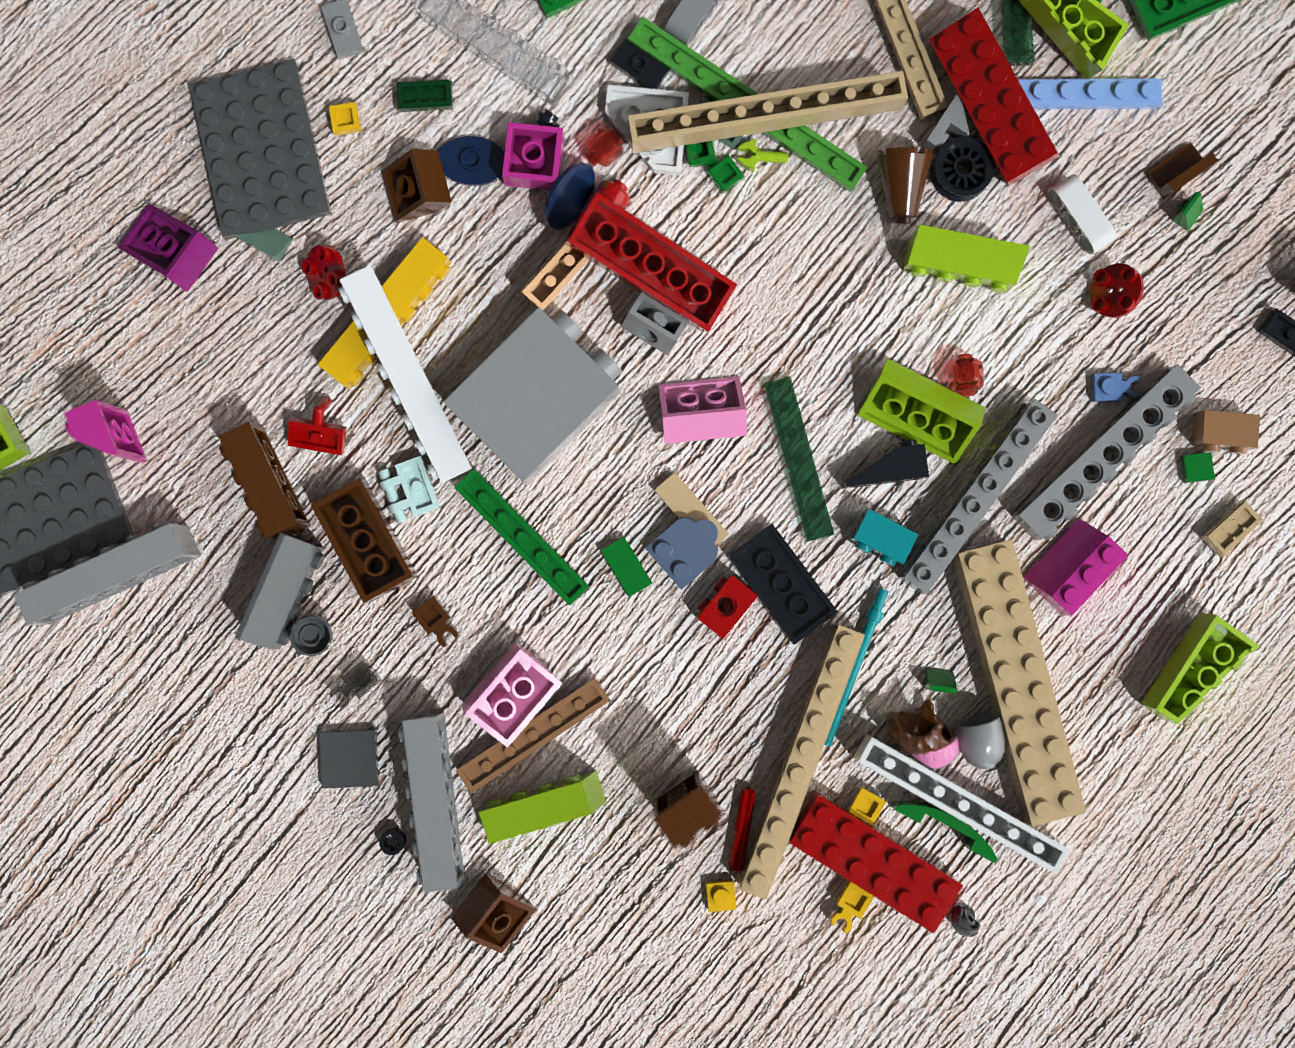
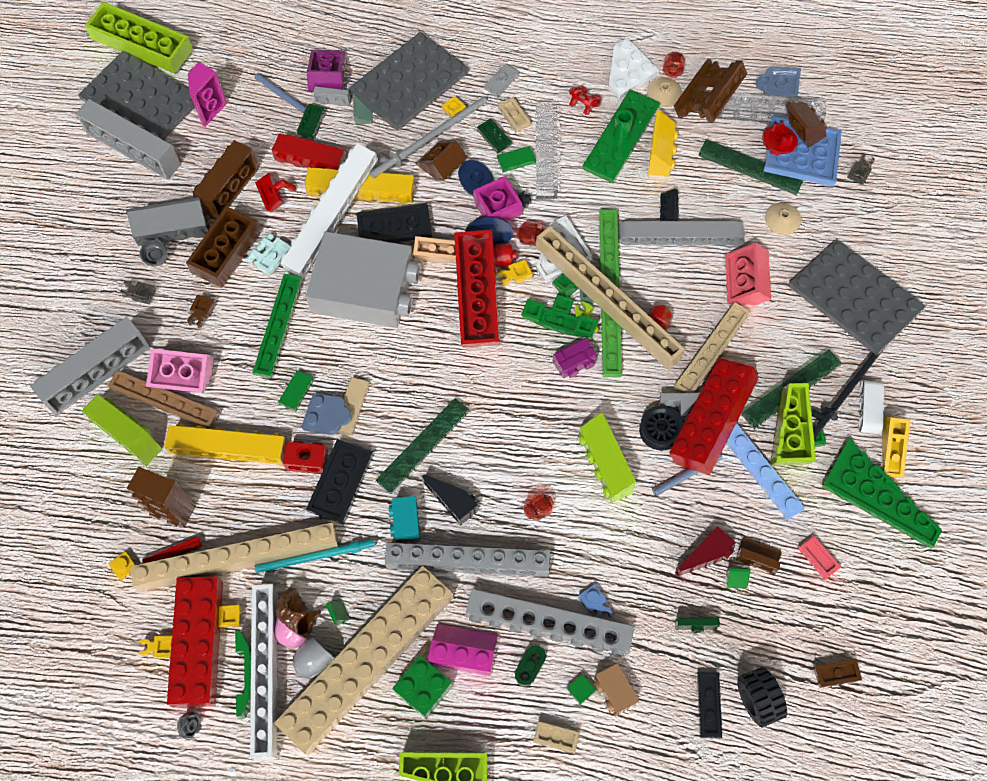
camera: 60 degrees right, 20 degrees down
(162, 329) = (281, 93): none -> sand blue bar
(212, 272) = (332, 96): none -> light grey plate
(237, 316) = (311, 120): none -> dark green plate
(291, 351) = (307, 153): none -> red brick
(324, 270) = (365, 139): red plate -> none
(349, 758) = (93, 314): dark grey tile -> none
(381, 243) = (395, 159): none -> light grey piece
(388, 849) = (51, 360): black bush -> none
(410, 48) = (514, 115): none -> tan plate
(473, 307) = (395, 223): none -> black plate
(478, 91) = (516, 159): none -> green tile
(492, 914) = (39, 441): reddish brown slope -> none
(639, 66) = (590, 226): black plate -> none
(646, 198) = (518, 272): none -> yellow plate
(646, 693) = (225, 444): none -> yellow brick
(654, 323) = (447, 317): light grey brick -> none
(703, 410) = (415, 373): bright pink slope -> none
(747, 191) = (558, 321): none -> green slope
(809, 208) = (575, 358): none -> magenta brick
(824, 68) = (661, 315): none -> red head
(903, 180) = (628, 397): reddish brown cone -> none
(922, 411) = (499, 494): lime slope -> none
(1033, 203) = (676, 480): none -> sand blue bar
(1082, 214) = (686, 513): white beam -> none
(1090, 638) = (422, 687): none -> green brick
(1116, 303) = (653, 561): red plate -> none
(1141, 503) = (530, 666): none -> dark green plate
(1142, 220) = (709, 552): none -> dark red slope
(1213, 293) = (697, 625): none -> dark green plate
(1223, 105) = (819, 557): none -> coral tile

